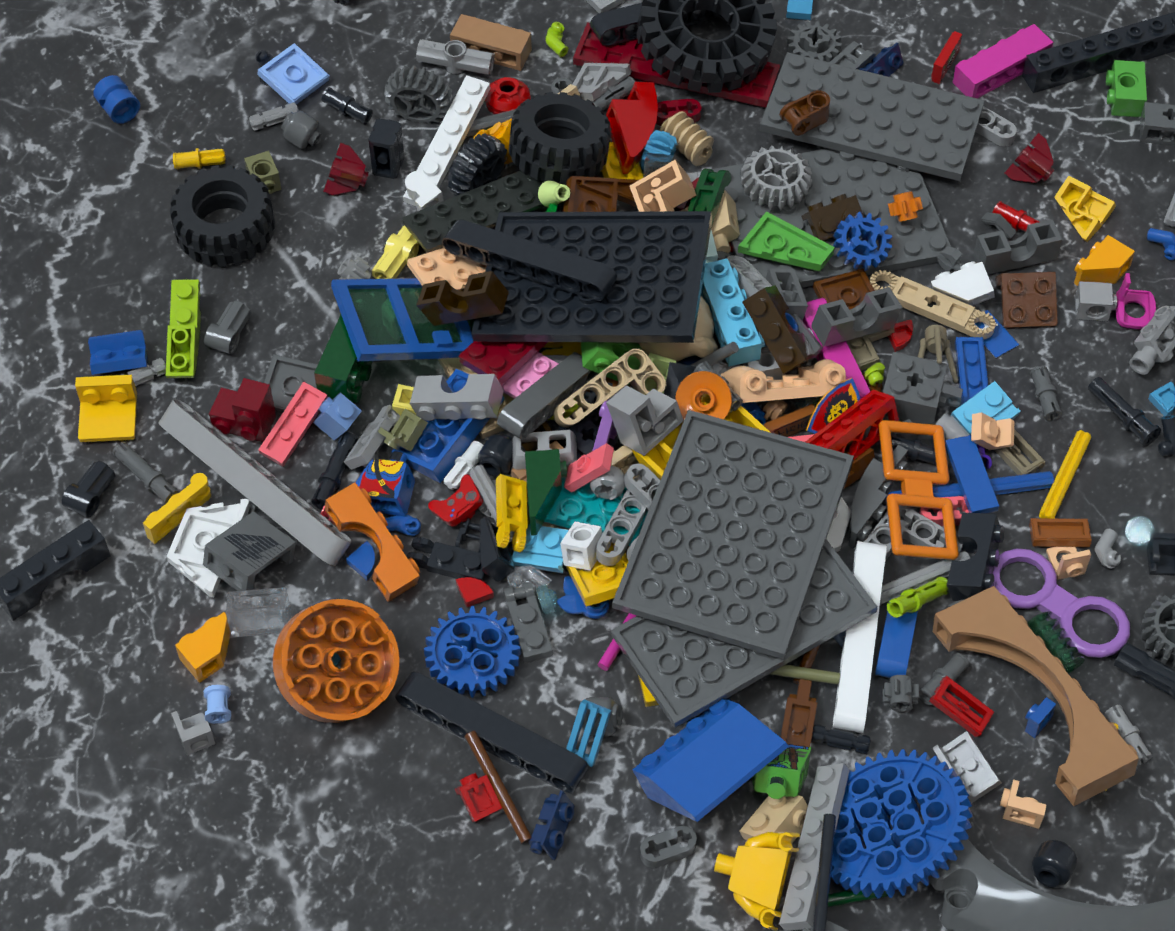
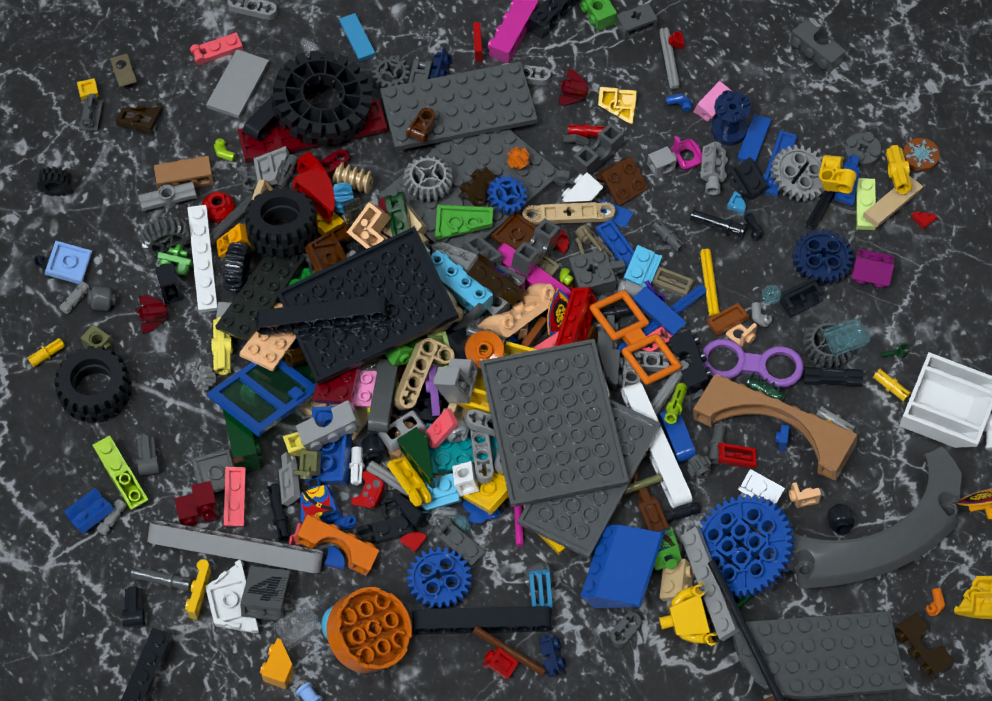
camera: 30 degrees left, 5 degrees up
(106, 408) = (108, 551): yellow bracket -> none
(336, 415) = (259, 477): medium blue brick -> none
(347, 105) = (118, 266): black pin -> none
(421, 138) = (183, 263): none -> bright green hips
(422, 190) = (213, 300): white leg -> none
(482, 297) = (289, 370): dark brown arch -> none
(553, 193) = (301, 261): yellowish green cone -> none
(992, 433) = (656, 278): light nougat bracket -> none
(1105, 262) = (654, 134): light orange slope -> none

